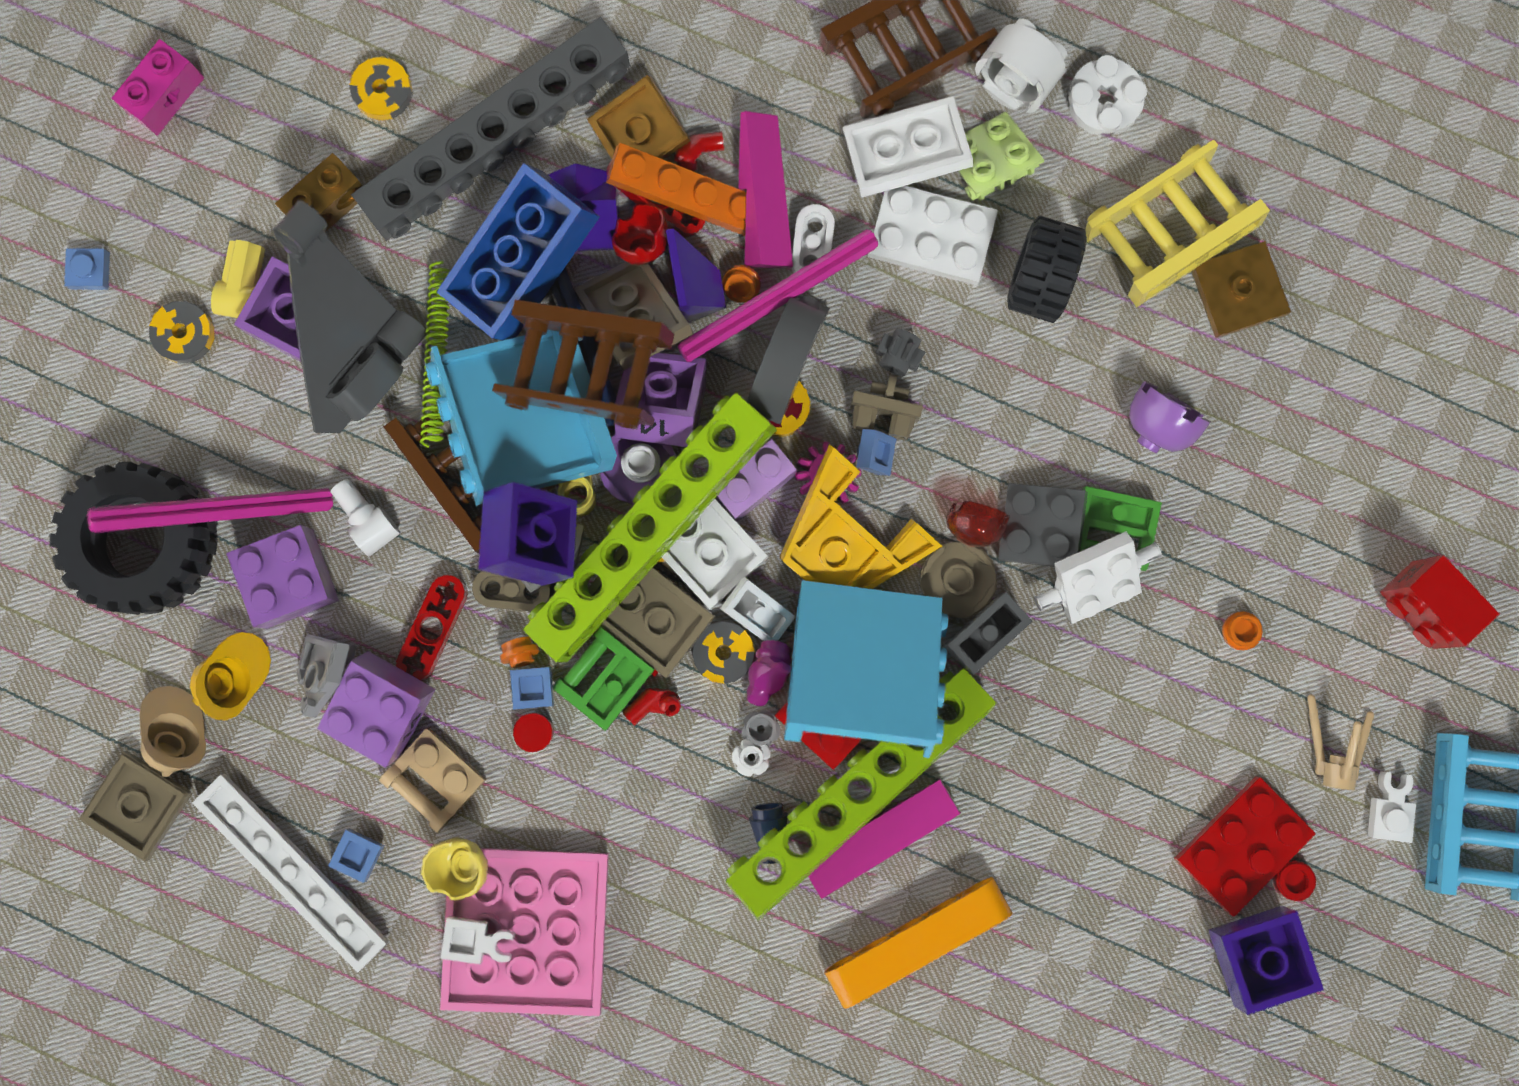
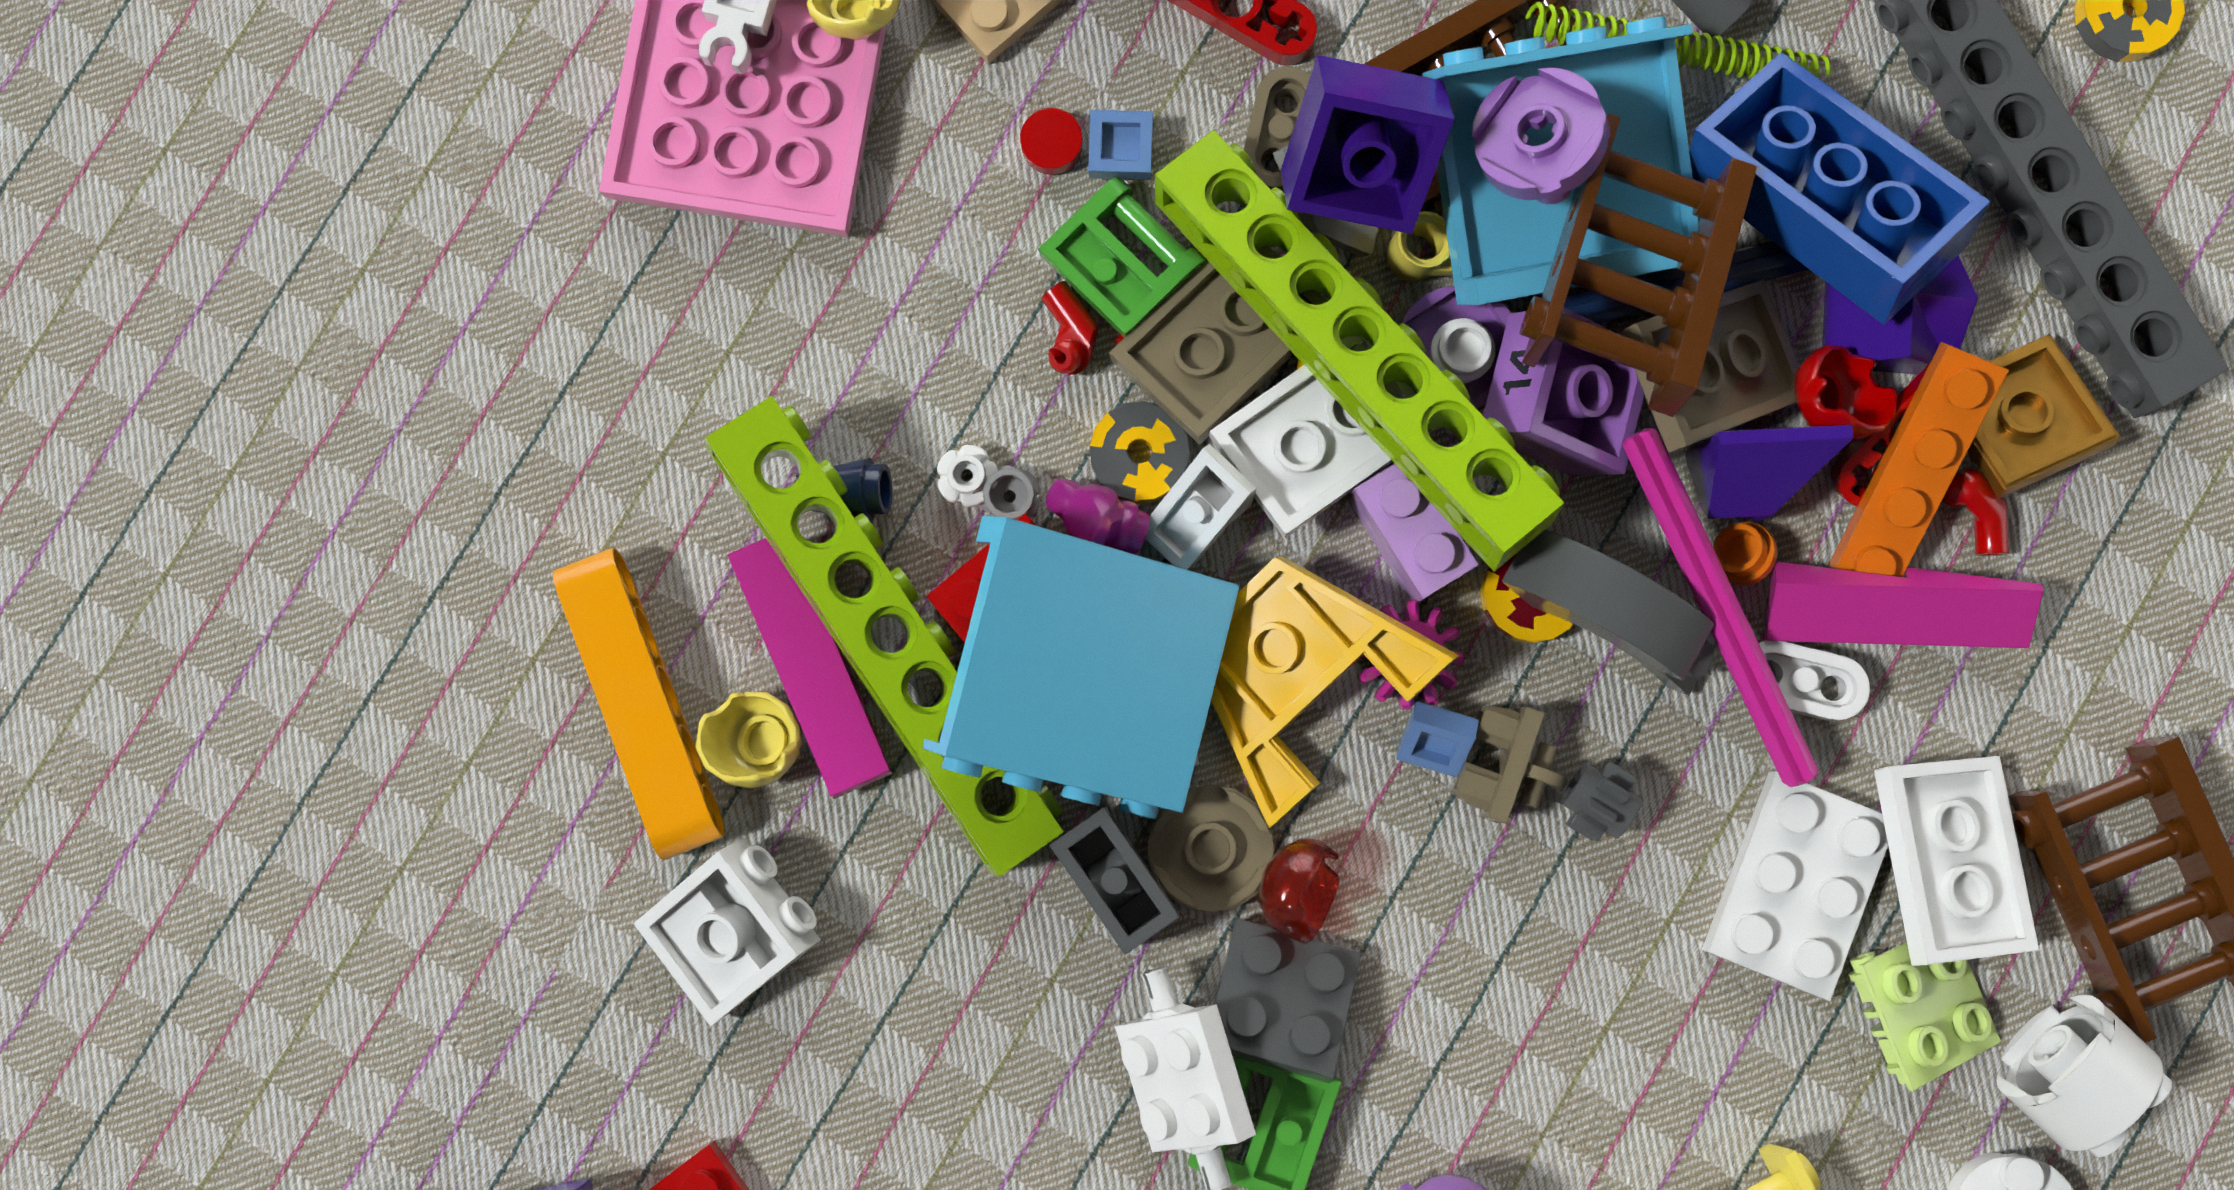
camera: 110 degrees right, 0 degrees up
(519, 652) = (1178, 126): orange plate -> none
(533, 421) = (1551, 168): none -> medium lavender plate
(932, 868) = (749, 739): none -> light yellow hair
(1047, 269) = (1721, 1066): black tyre -> none
(1049, 865) = (728, 929): none -> white plate

